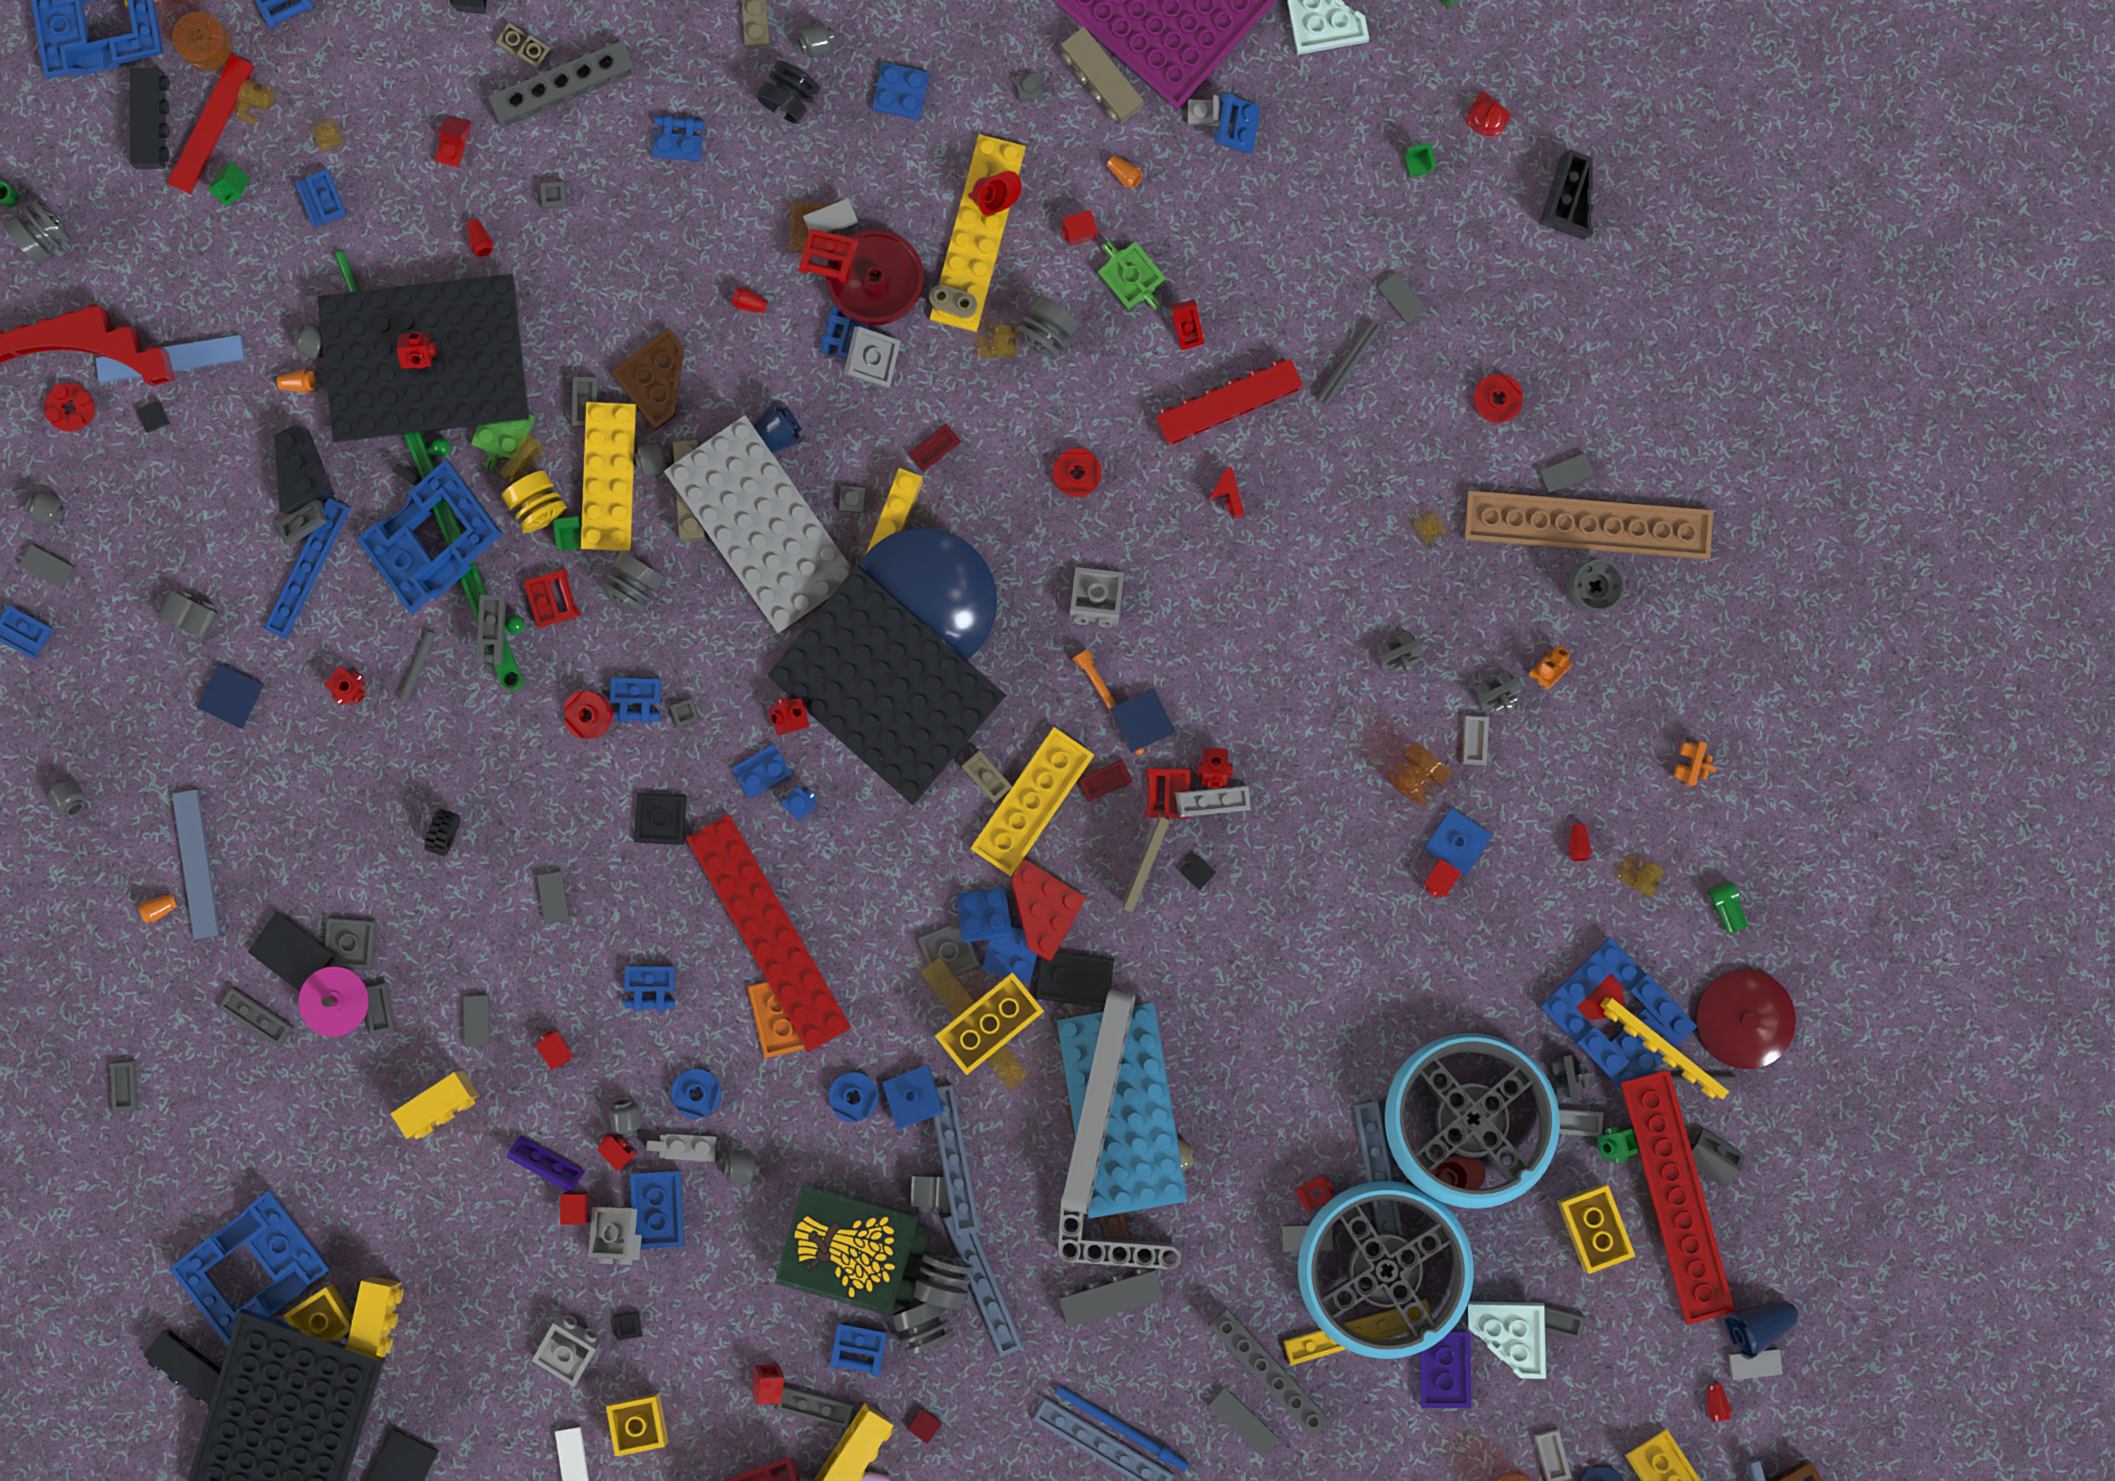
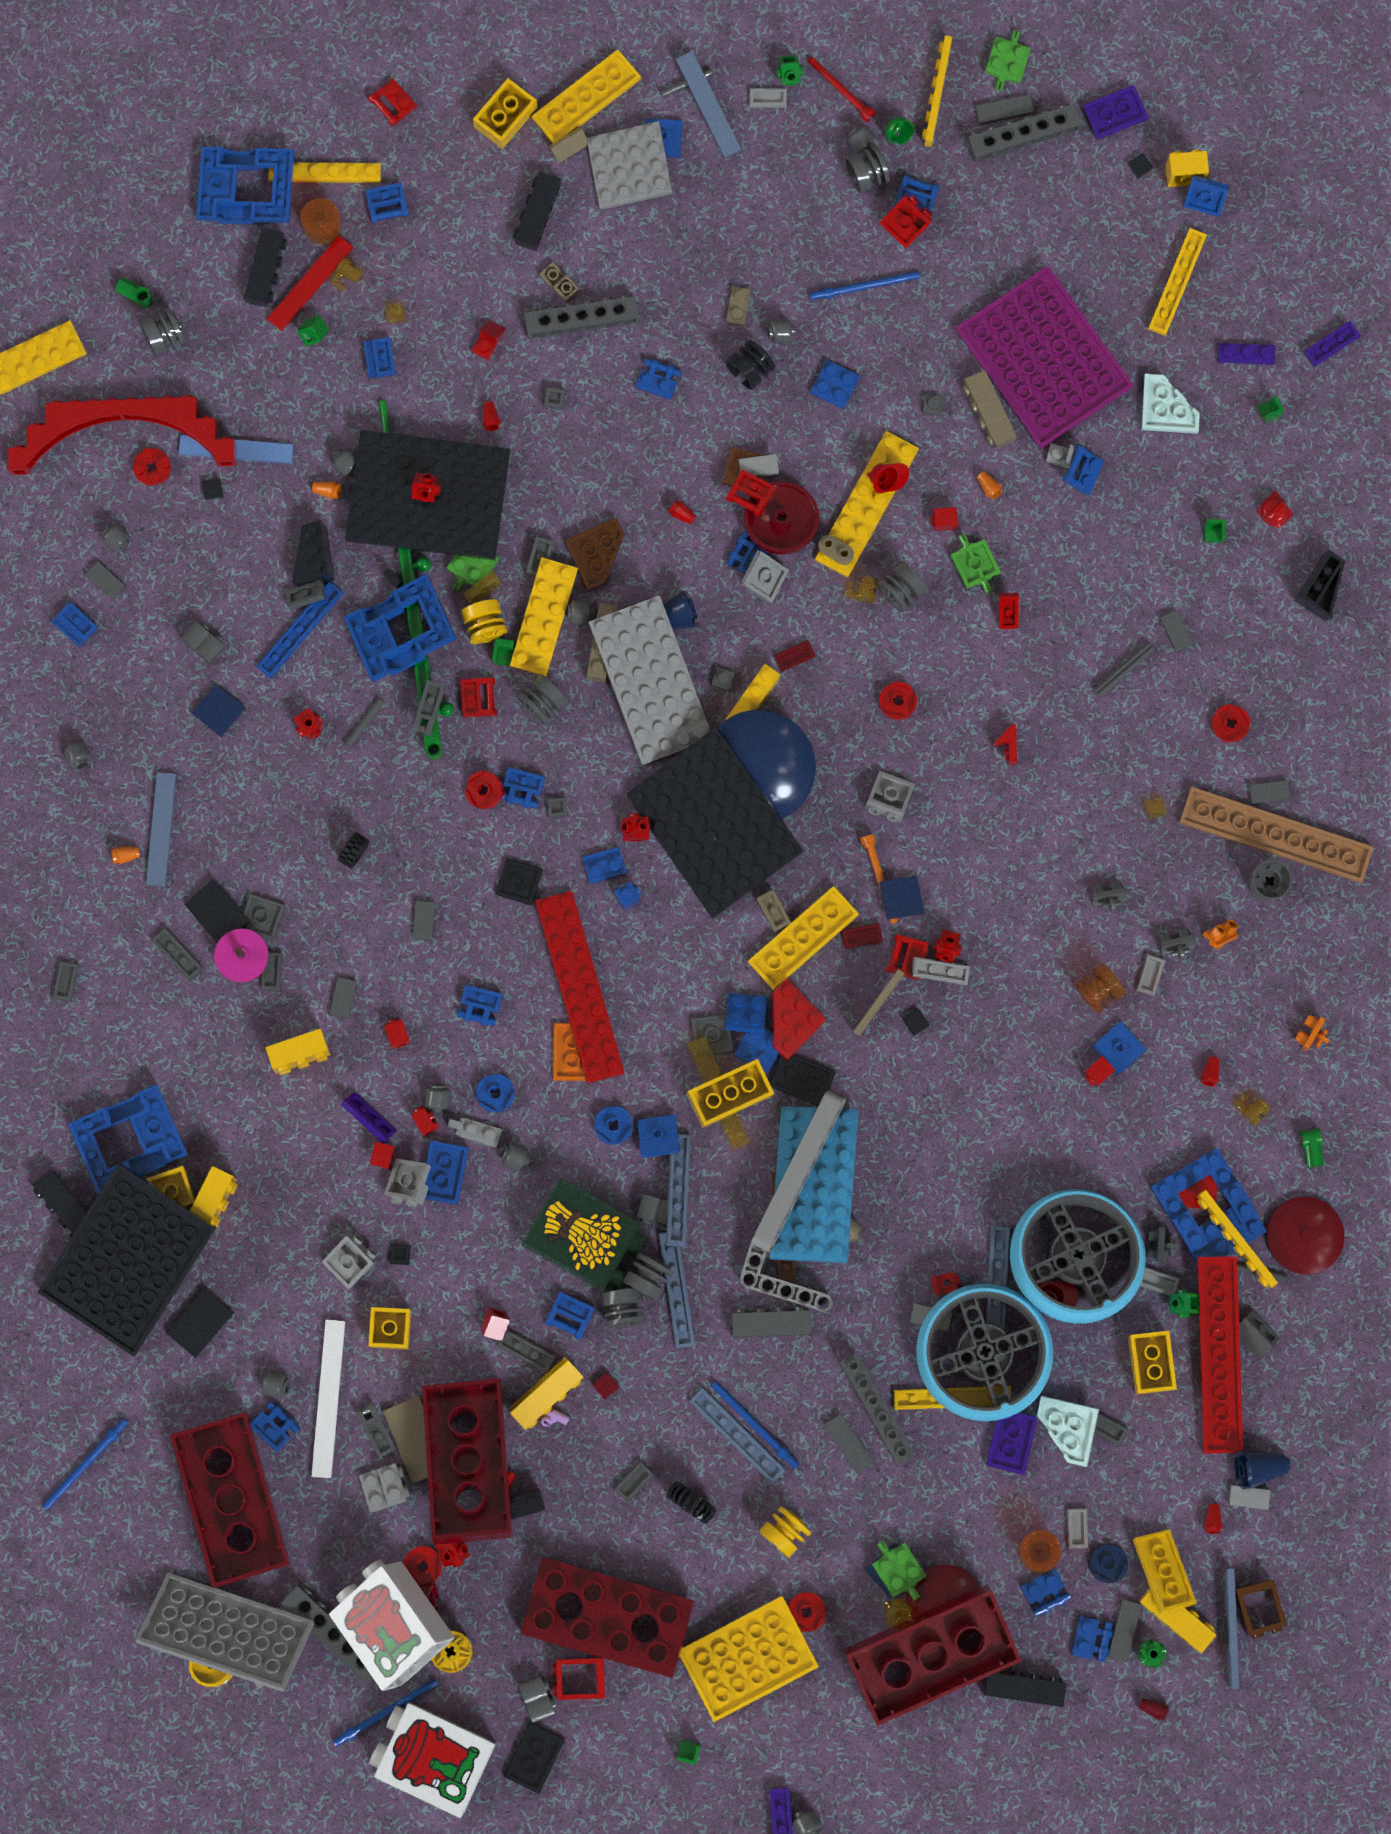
camera: 10 degrees right, 5 degrees down
(1228, 402) = (1025, 676): red brick -> none

